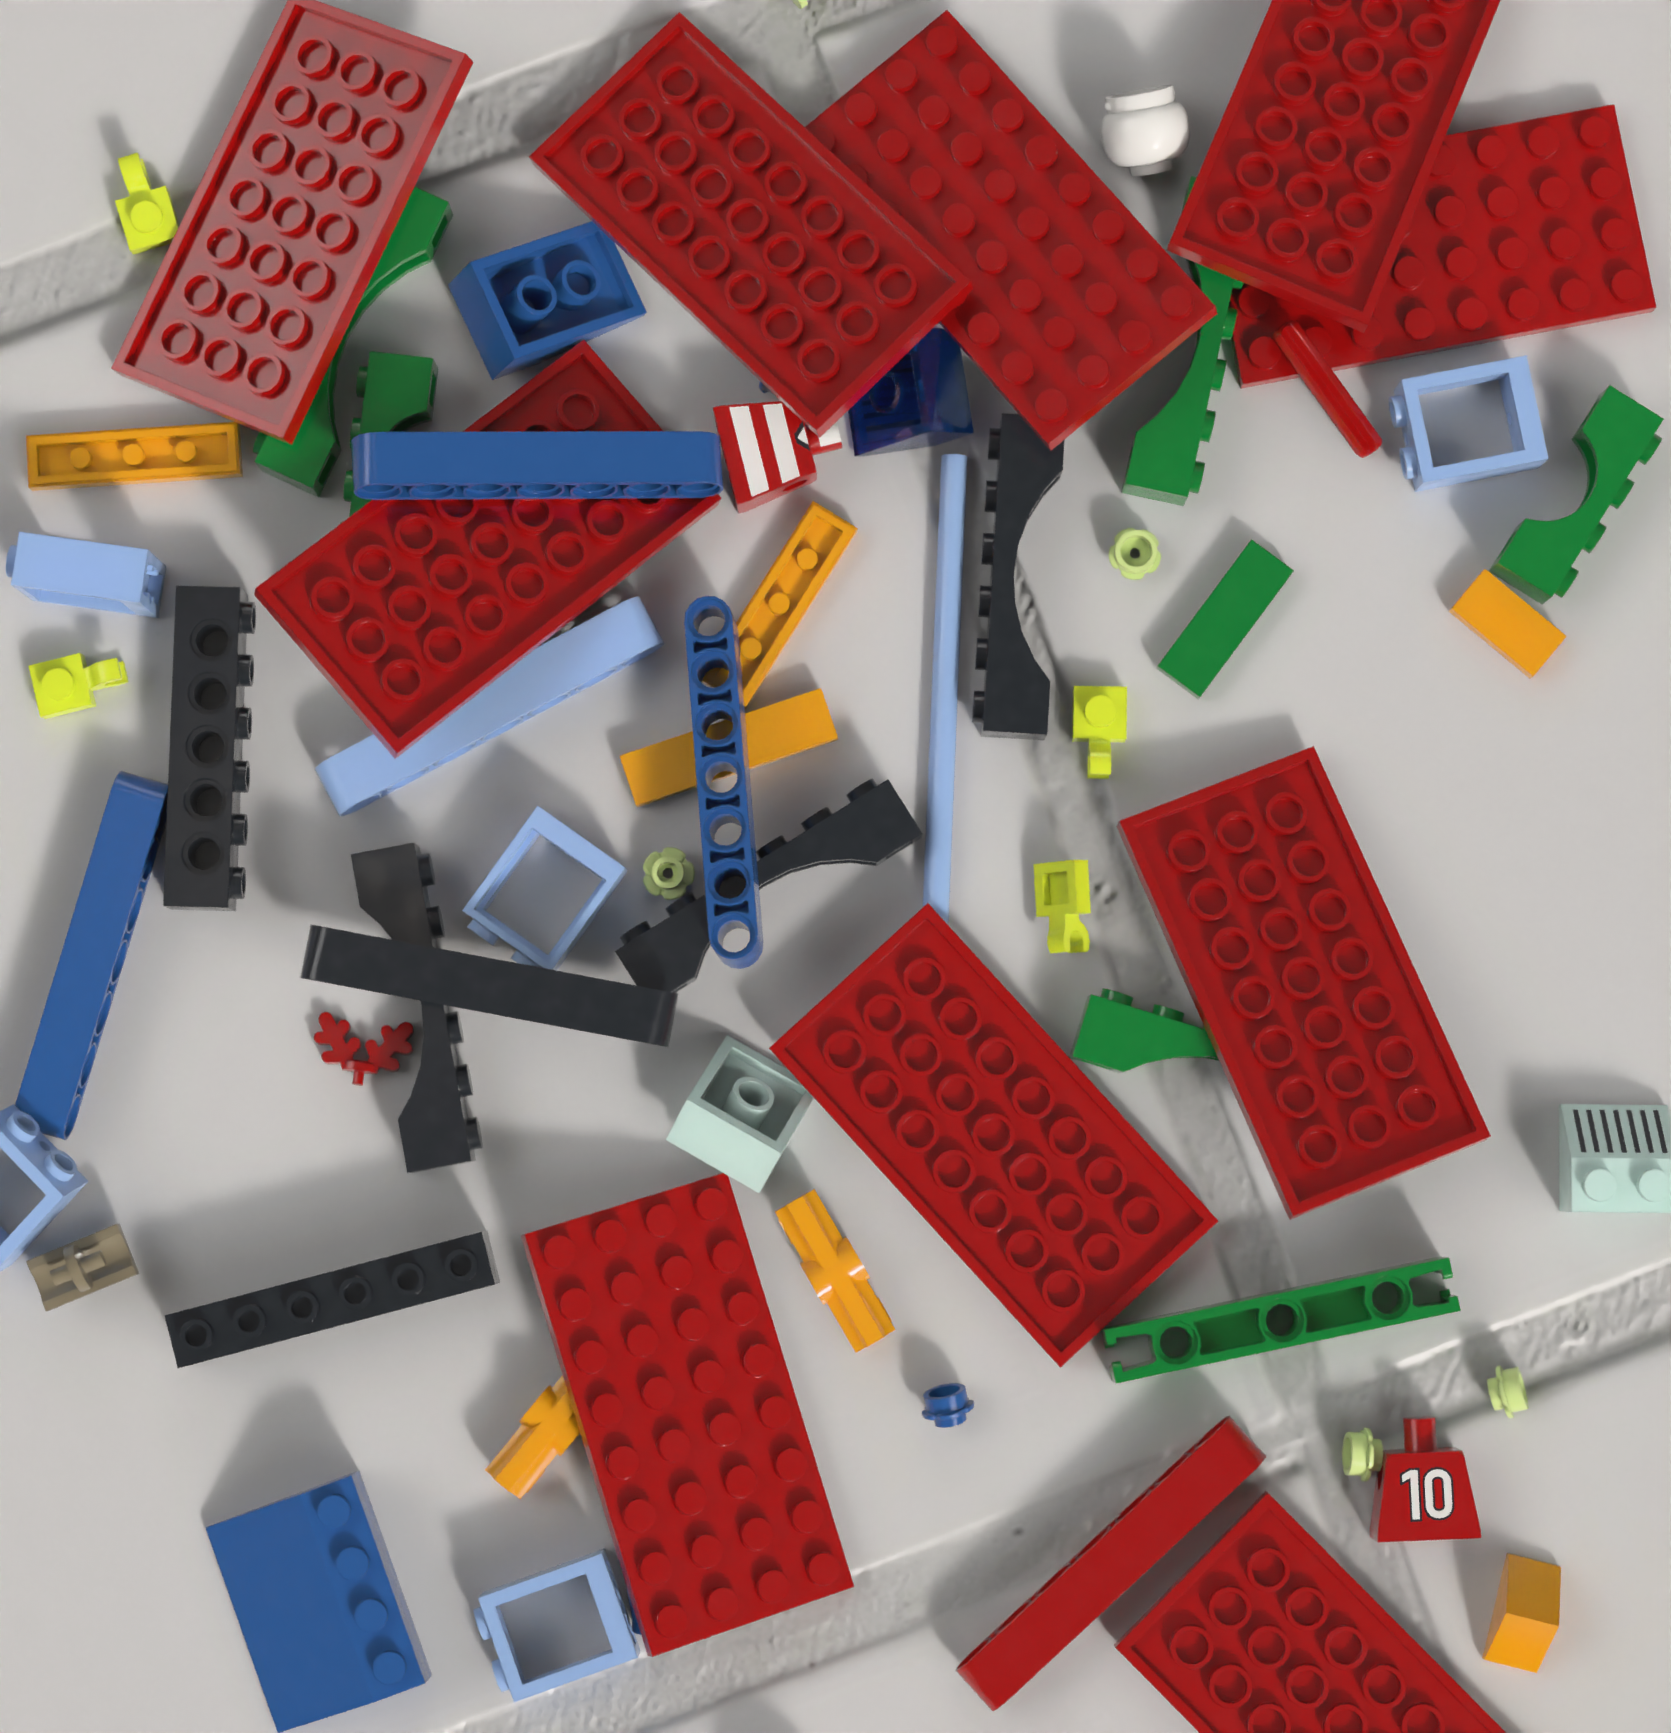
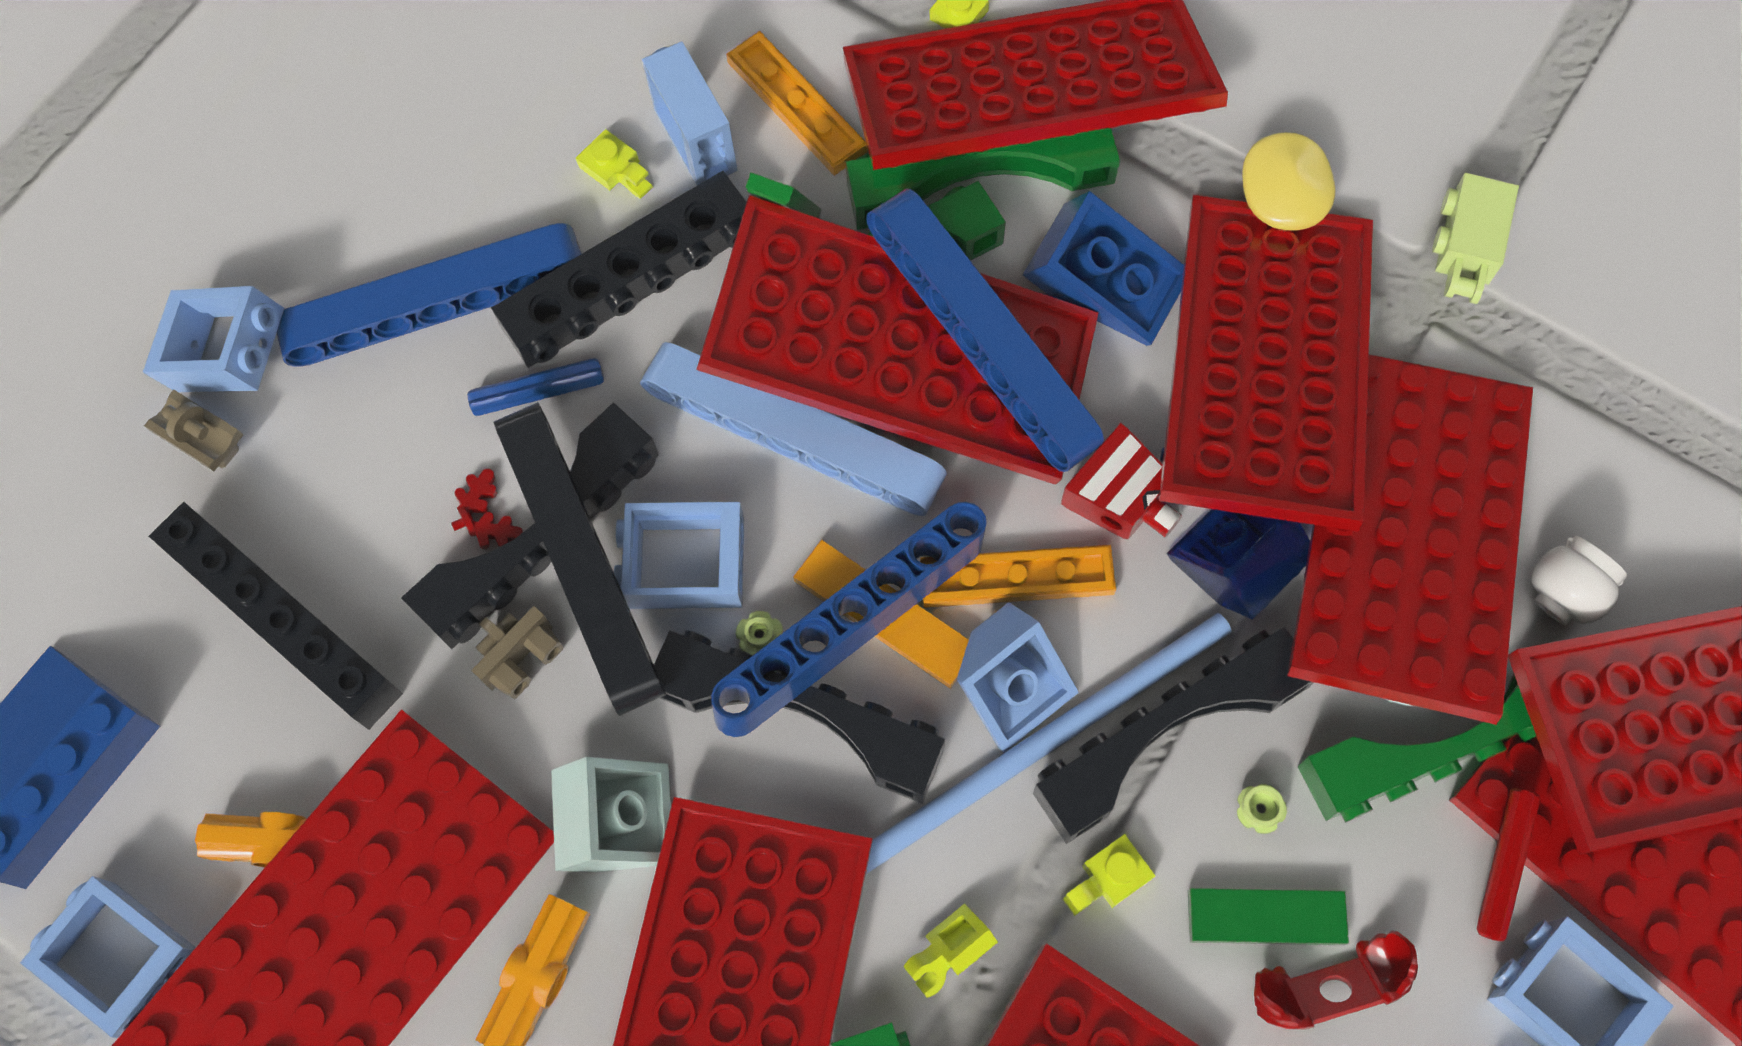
camera: 60 degrees right, 15 degrees down
(261, 552) = (781, 194): none -> green tile
(266, 916) = (535, 387): none -> blue axle
(534, 1126) = (509, 644): none -> dark tan hips
(587, 62) = (1288, 181): none -> light yellow piece
(870, 678) = (1013, 675): none -> light blue slope
(1335, 569) = (1378, 976): none -> red piece

